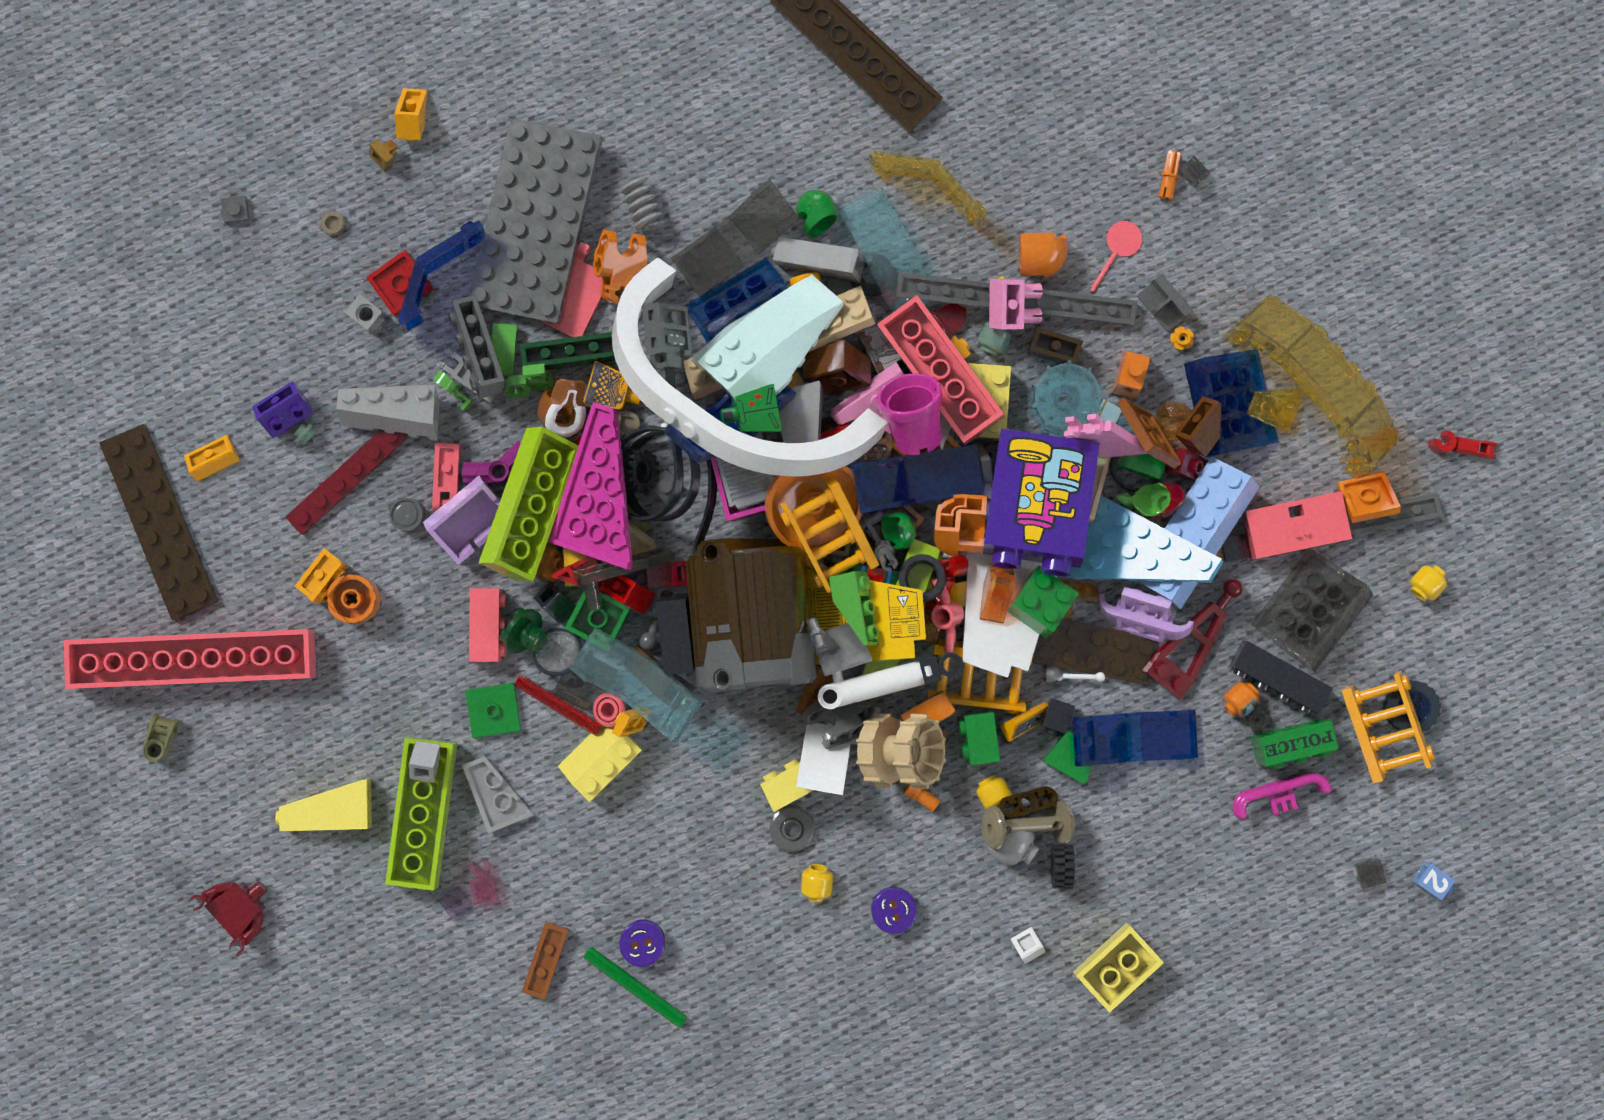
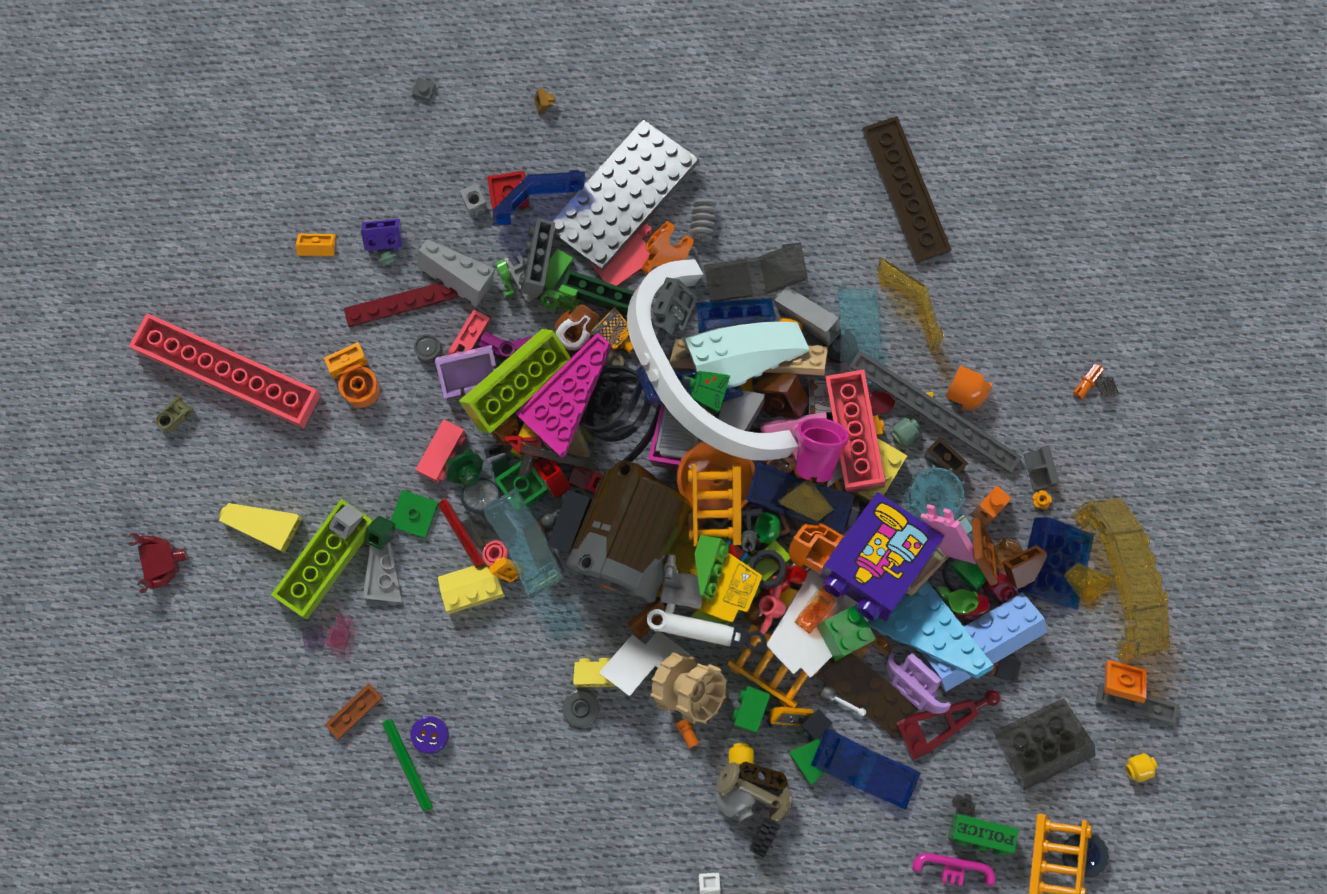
camera: 25 degrees right, 10 degrees down
(158, 522) = (256, 270): dark brown plate -> none
(333, 223) = (484, 130): dark tan tile -> none
(410, 114) = (576, 84): light orange slope -> none
(468, 752) = (380, 532): none -> dark green brick
(816, 207) = (824, 279): green helmet -> none
(816, 882) = (578, 756): yellow head -> none
(846, 720) = (659, 643): dark grey piece -> none
(893, 910) = (624, 806): dark purple head -> none
(928, 478) = (807, 501): none -> clear yellow wing
(936, 706) = (730, 670): orange slope -> none
(1007, 303) = (926, 409): bright pink brick -> none
(1123, 240) = (1032, 410): coral piece -> none
(1241, 699) = (959, 783): orange head -> none
(1280, 677) = (996, 781): black brick -> none
(1296, 525) = (1061, 675): coral brick -> none
(1462, 445) = (1214, 680): red piece -> none

